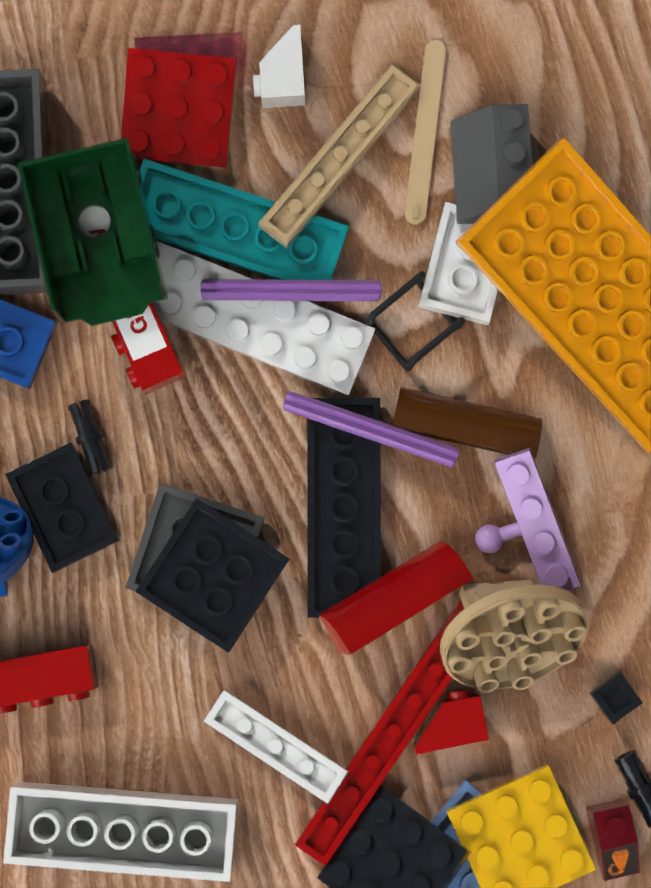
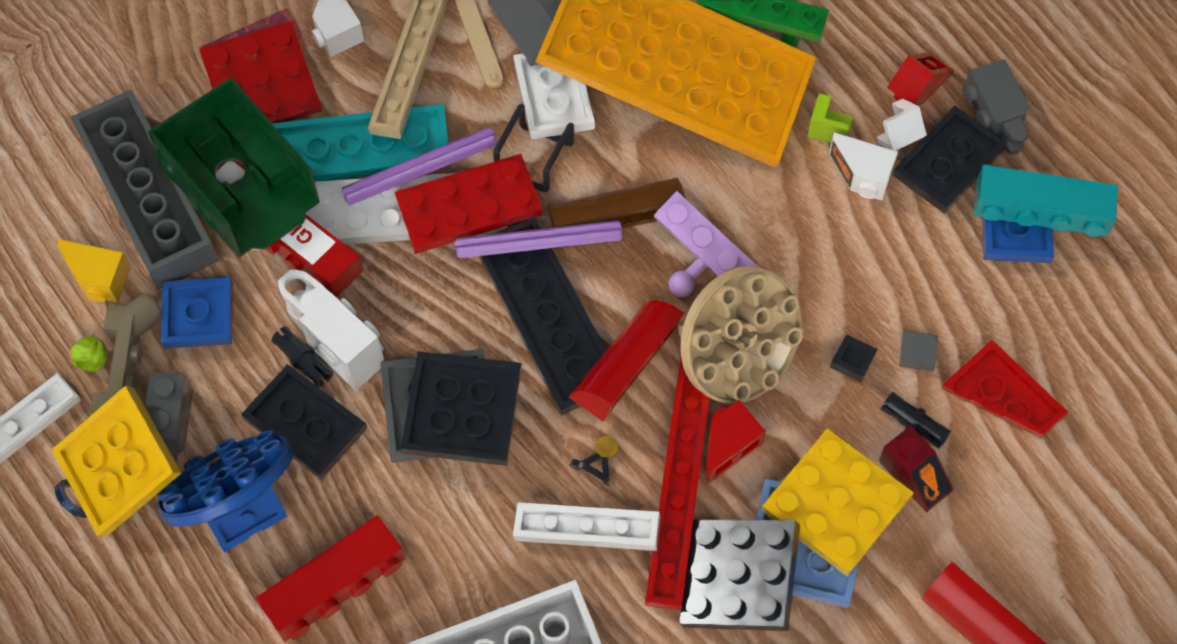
camera: 25 degrees left, 20 degrees down
(126, 431) = (333, 330): none -> white brick
(320, 354) = (468, 203): none -> red plate
(334, 671) = (606, 449): none -> piece

